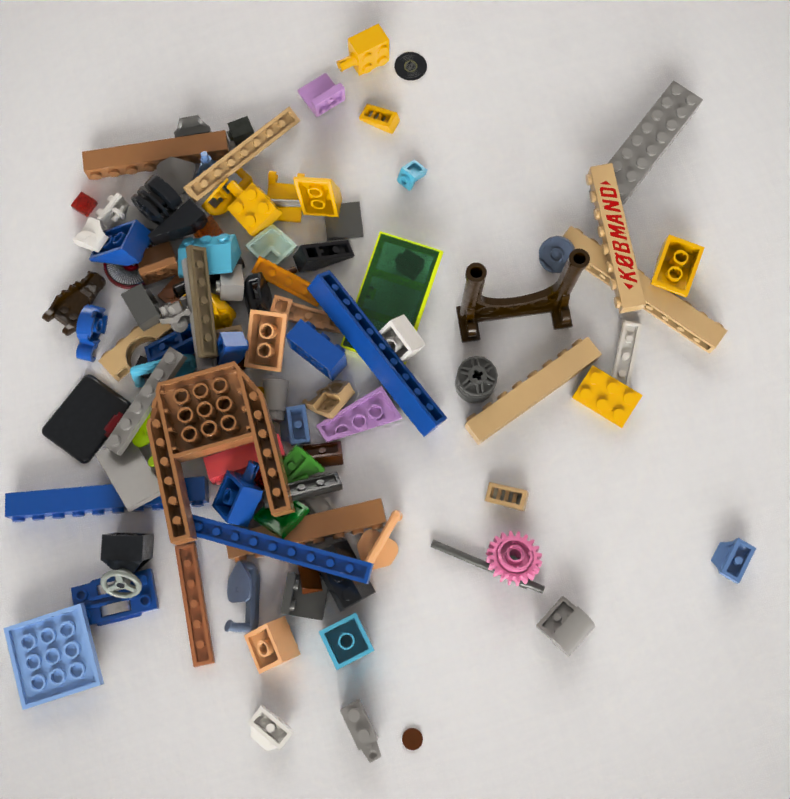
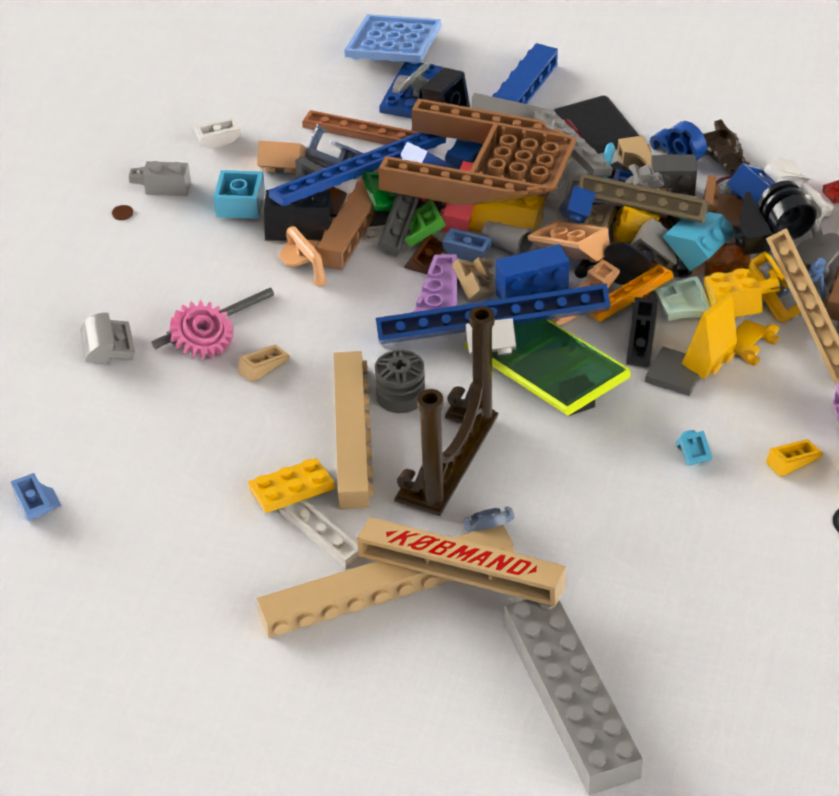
camera: 125 degrees right, 30 degrees down
(676, 265) = (383, 619): yellow slope -> none

